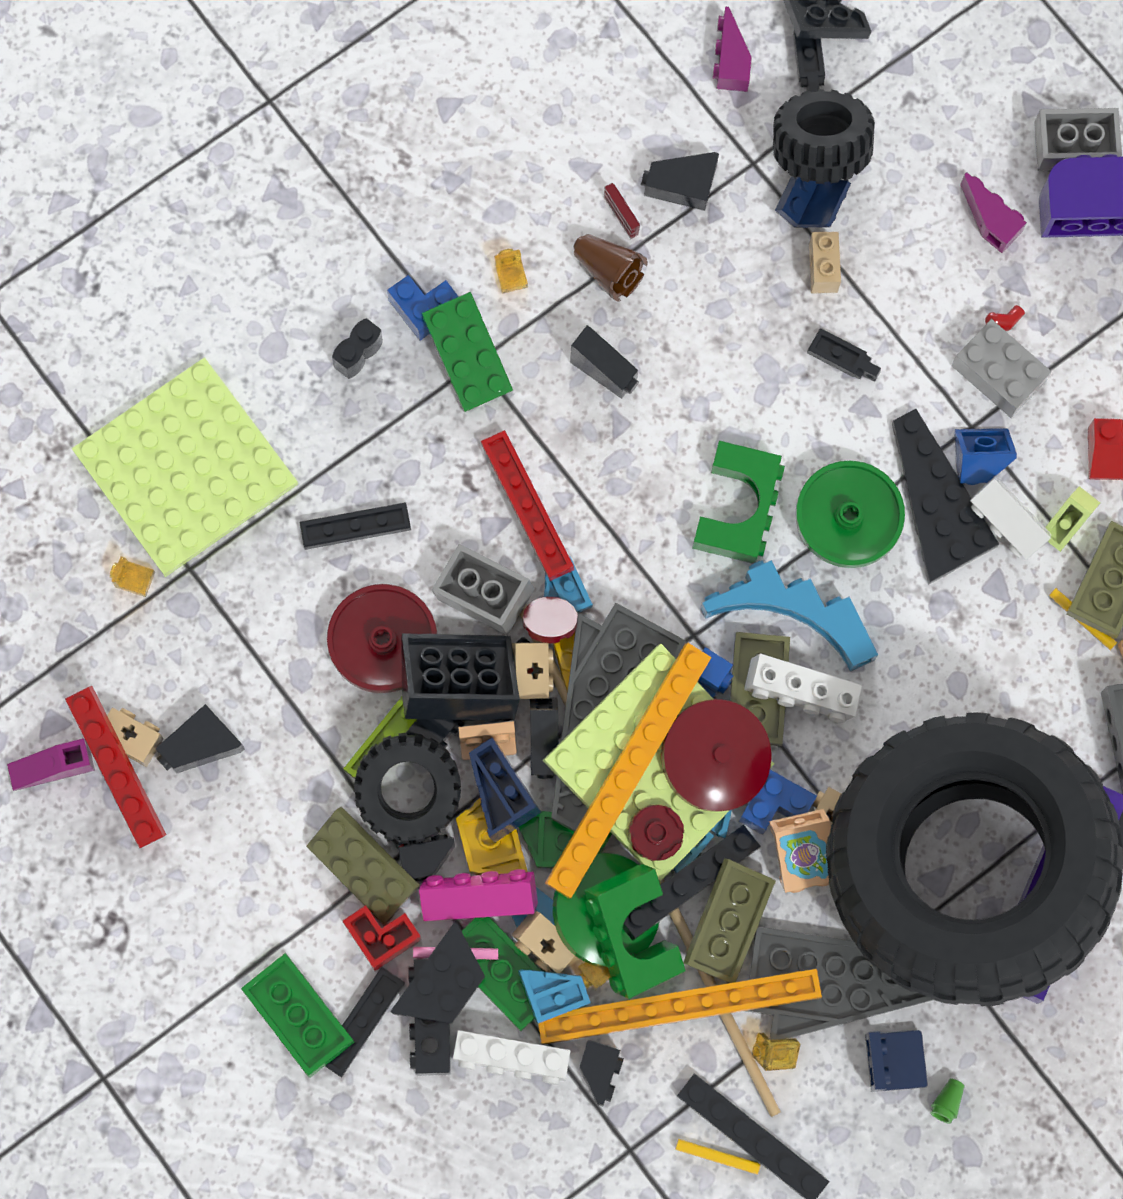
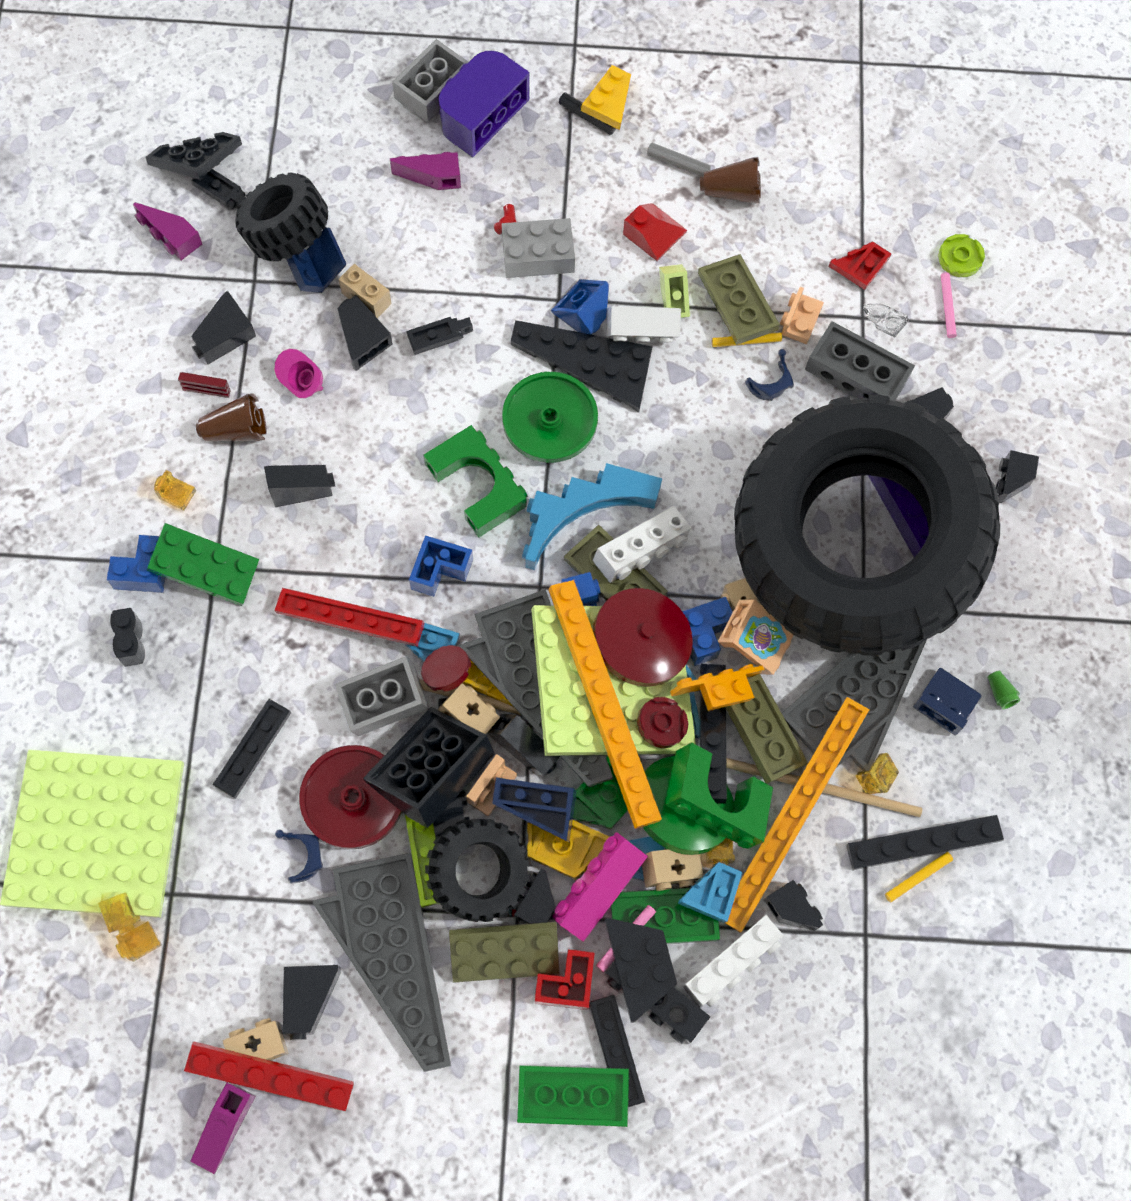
camera: 50 degrees left, 5 degrees down
(139, 543) = (118, 913): none -> clear yellow bracket
(294, 764) = (385, 937): none -> dark grey wing
(313, 649) = (314, 861): none -> dark blue helmet
(638, 531) = (439, 559): none -> blue brick
(699, 276) = (298, 373): none -> dark pink piece
(728, 859) = (723, 689): none -> light orange bracket
(785, 292) = (363, 332): none -> black slope
(1050, 680) = (775, 389): none -> dark blue helmet

